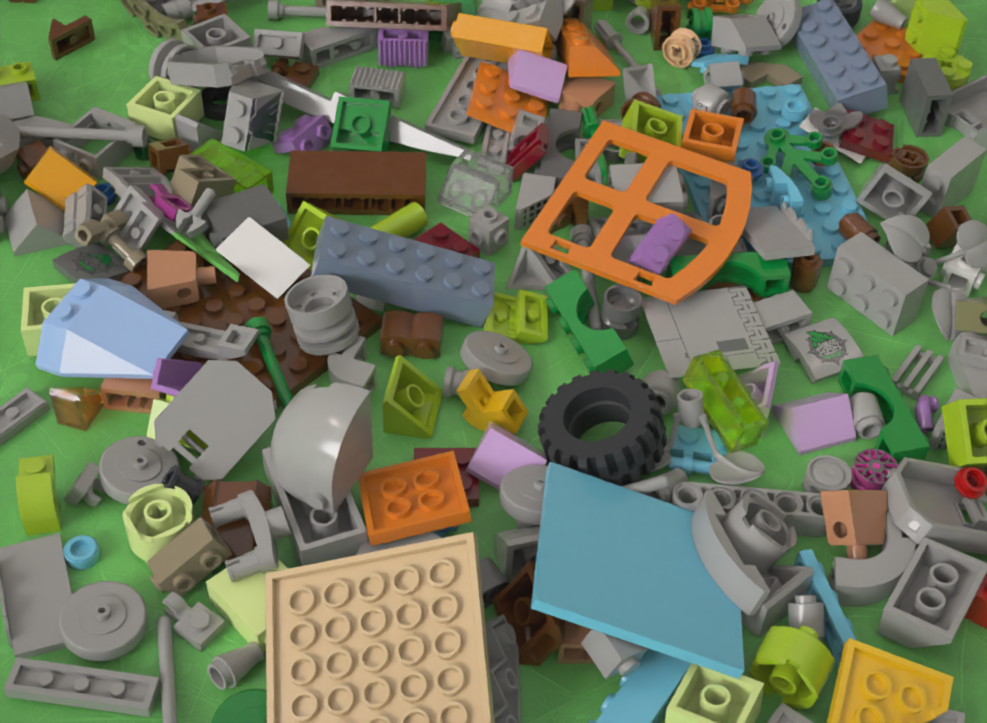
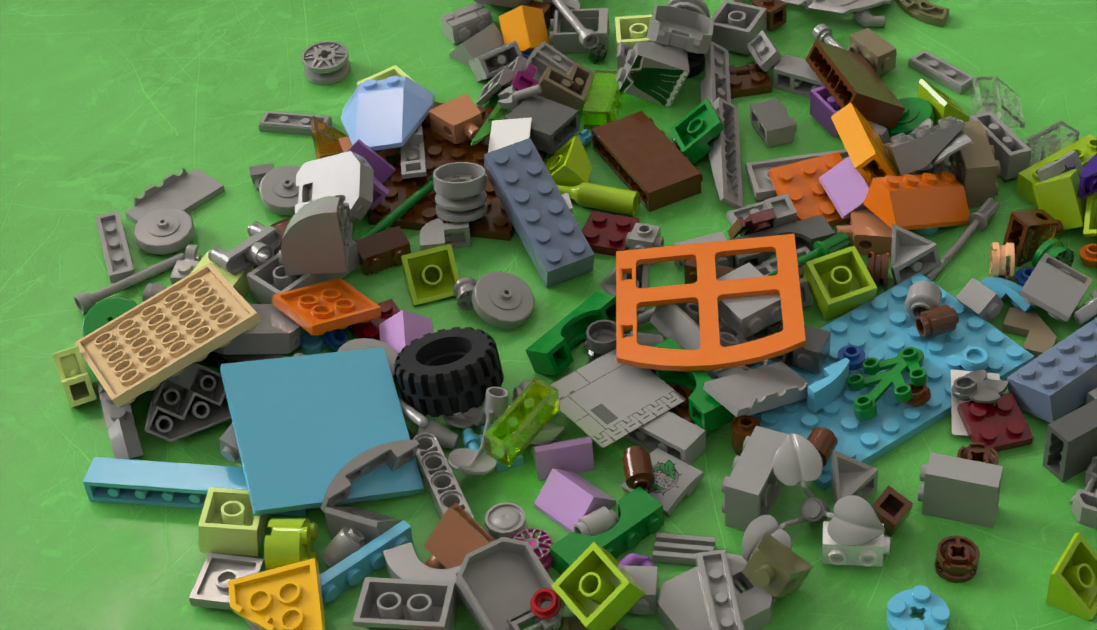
camera: 70 degrees right, 5 degrees down
(38, 495) = (234, 158): lime brick -> none
(81, 552) = (215, 201): medium azure tile -> none
(90, 262) = (456, 83): dark grey slope -> none
(108, 233) = (476, 73): dark tan bar -> none
(156, 518) = (242, 210): yellowish green brick -> none
(165, 154) = (596, 60): reddish brown brick -> none
(188, 558) = (222, 234): dark tan brick -> none
(192, 487) = (281, 207): black bush -> none
(307, 135) = (667, 115): medium lavender bracket -> none
(412, 334) = (500, 252): reddish brown brick -> none
(475, 183) = (690, 215): clear slope -> none
(487, 406) = (450, 306): yellow brick -> none
(519, 317) = (561, 295): lime slope -> none
(660, 244) = (667, 323): medium lavender brick -> none
(713, 135) = (852, 314): orange brick -> none
(758, 531) = (414, 477): light grey brick -> none
(821, 351) = (638, 468): none -> reddish brown brick
(892, 192) = (899, 455): light grey slope -> none

